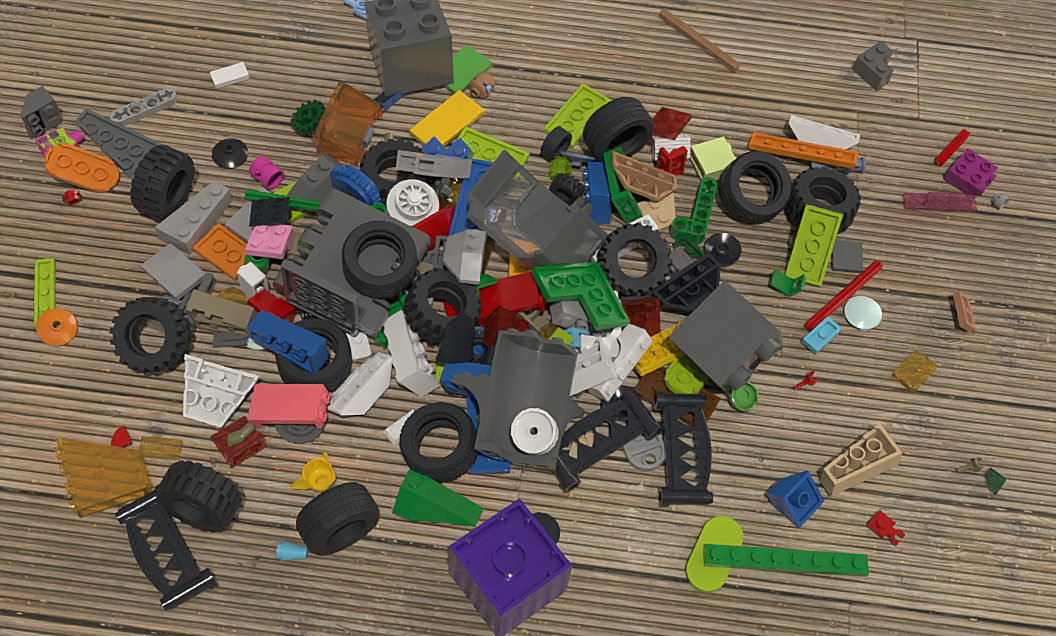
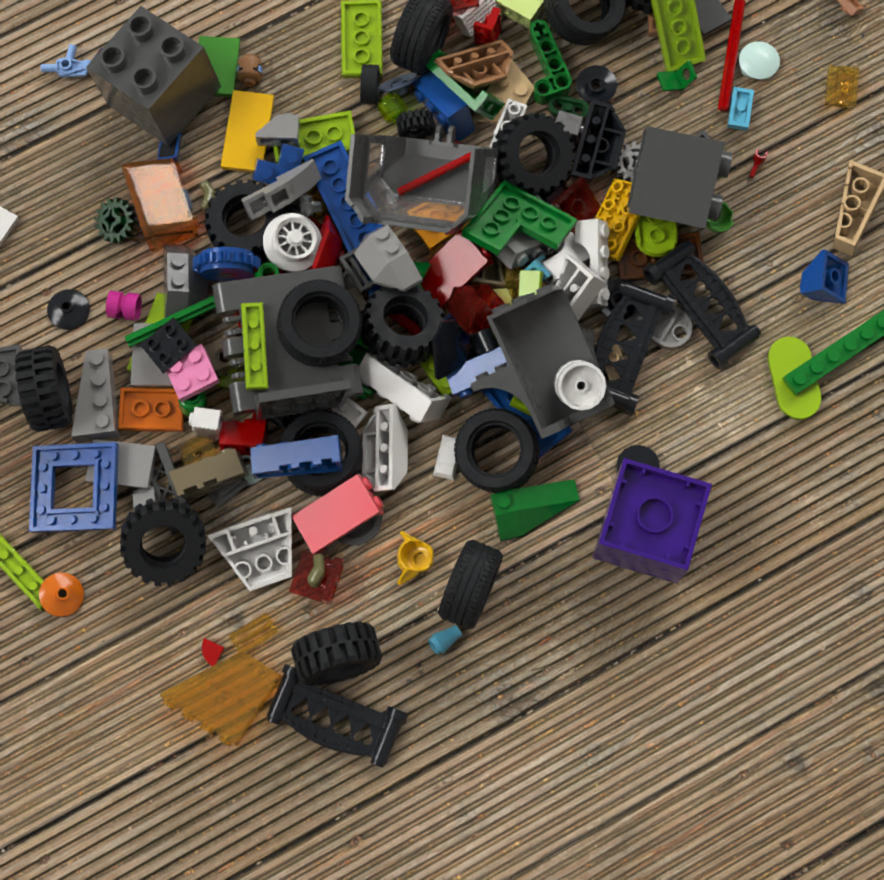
camera: 30 degrees left, 15 degrees up
(161, 254) = (44, 463): none -> plate
(324, 242) = (254, 346): none -> lime tile
(469, 130) = (280, 130): none -> light grey slope
(537, 226) = (434, 174): none -> red bar

